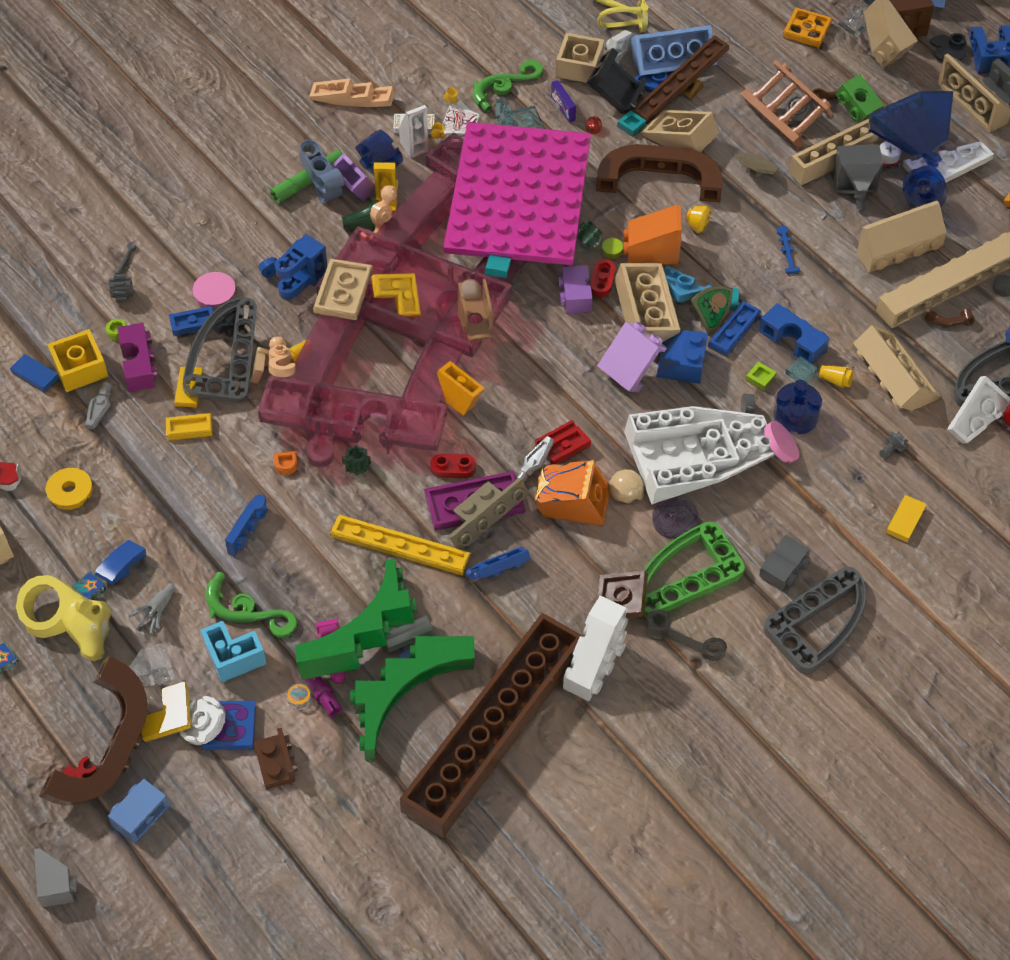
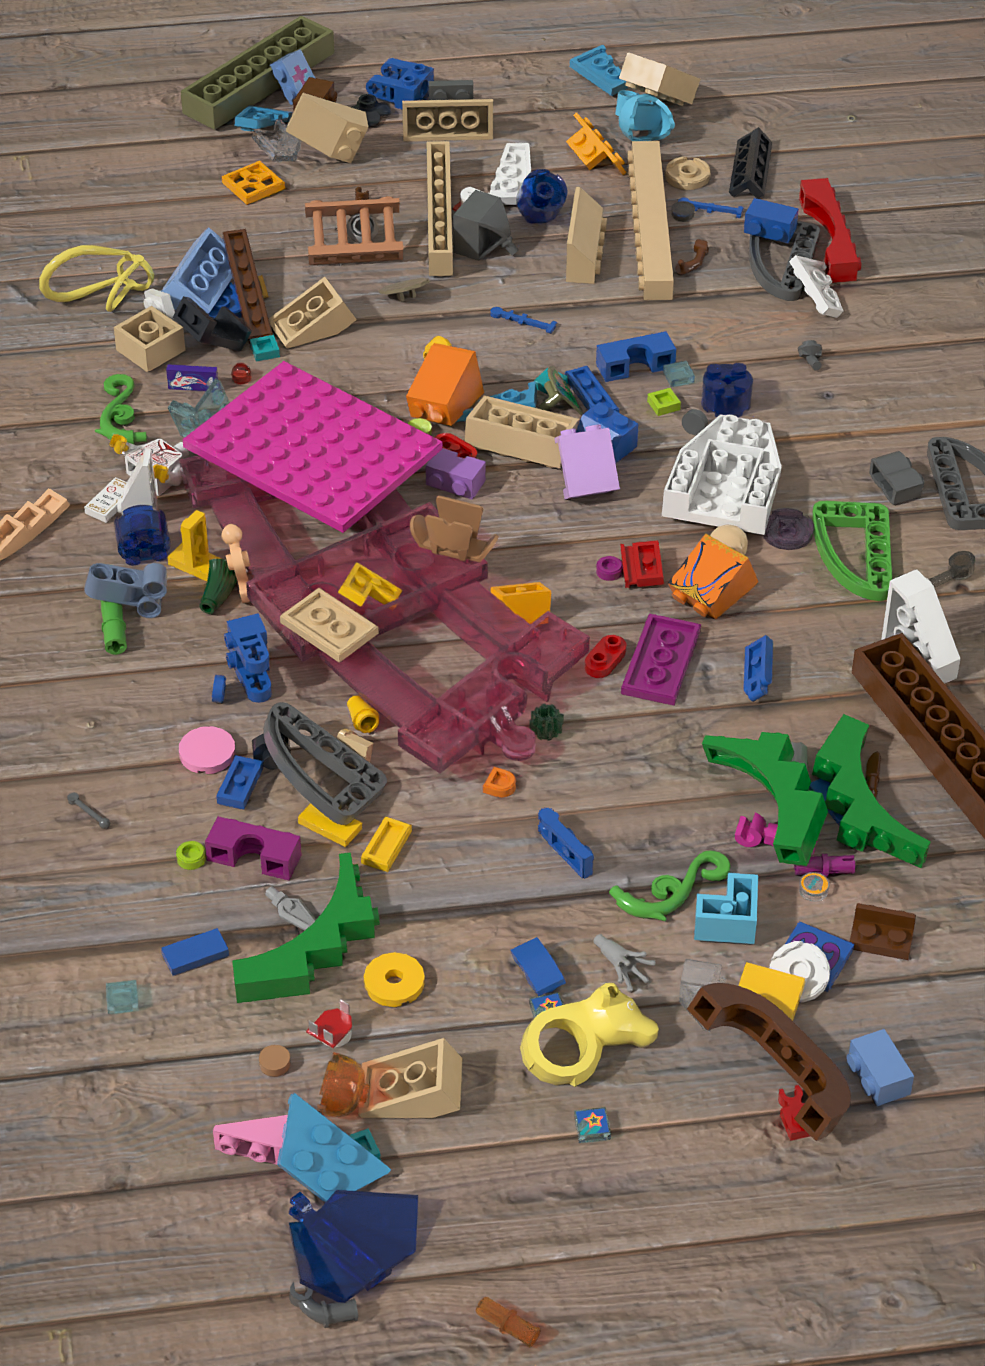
camera: 60 degrees left, 10 degrees down
(53, 880) = (921, 1173): light grey slope -> none
(75, 434) = (292, 965): none -> green arch
(78, 360) = (221, 896): yellow brick -> none
(120, 287) = (138, 822): dark grey gear -> none
(280, 356) = (370, 717): light nougat piece -> none
(354, 177) = (170, 558): medium lavender brick -> none
(400, 545) = (675, 736): yellow tile -> none
(437, 687) = (872, 772): none -> reddish brown piece
(484, 509) = (685, 648): dark tan bracket -> none
(498, 266) = (398, 500): teal tile -> none
(535, 459) = (649, 588): light grey piece -> none
(547, 424) = (609, 568): none -> magenta tile
(626, 590) = (859, 596): plate -> none
(661, 160) = (361, 328): reddish brown arch -> none
(781, 442) = (765, 415): bright pink tile -> none
(837, 375) = (705, 352): yellow cone -> none
(858, 98) = (385, 182): bright green brick -> none
(895, 369) = (729, 312): tan slope -> none
(906, 518) = (897, 385): yellow tile -> none
(916, 124) = (467, 157): clear blue panel -> none

